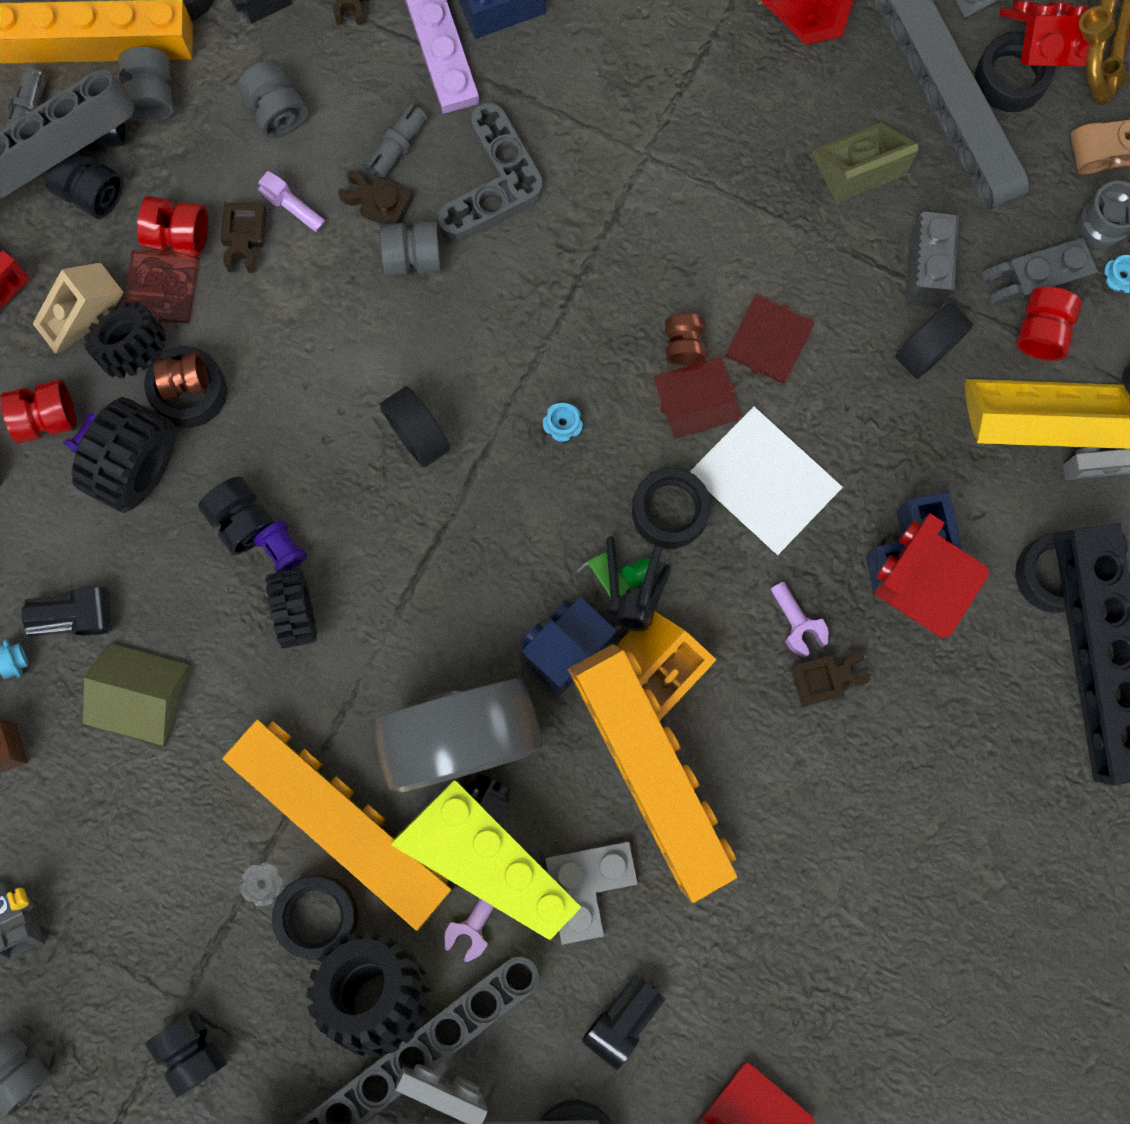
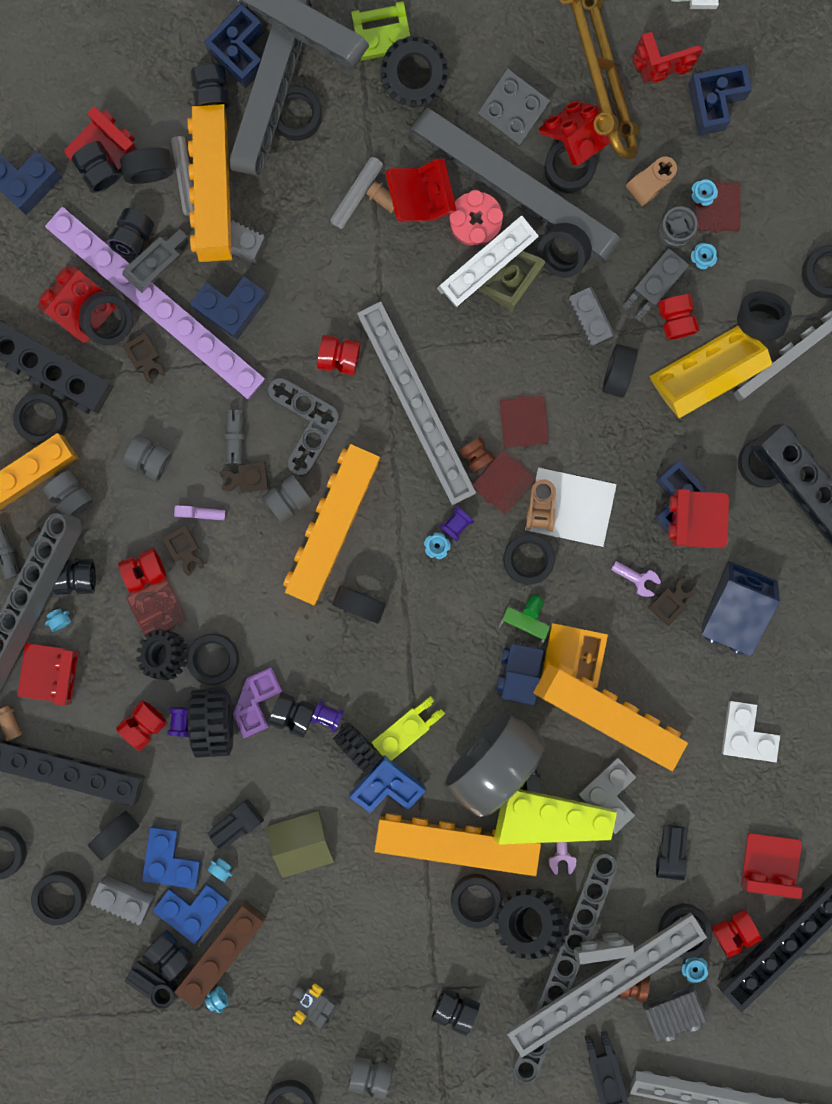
camera: 25 degrees left, 10 degrees up
(30, 225) = (57, 619): none -> medium azure plate
(75, 303) = (119, 651): tan slope -> none
(181, 376) = (211, 659): copper wheel -> none
(186, 481) = (247, 710): none -> medium lavender tile
(272, 880) = (436, 894): clear plate -> none
(305, 677) = (384, 780): none -> blue plate
(370, 631) = (405, 730): none -> neon yellow hinge
(446, 314) = (332, 524): none -> light orange brick
(591, 122) = (338, 355): none -> red wheel
(605, 408) = (456, 523): none -> dark purple bush
(636, 606) = (546, 630): black plant -> none
(647, 237) = (416, 403): none -> light grey plate
(724, 454) = (541, 507): none -> medium nougat piece
(814, 927) = (742, 740): none -> white plate
(844, 114) = (488, 261): none -> white fence
(864, 47) = (475, 203): none -> coral plate
(913, 744) = (740, 609): none -> dark blue slope
(977, 164) = (576, 237): none -> black tyre

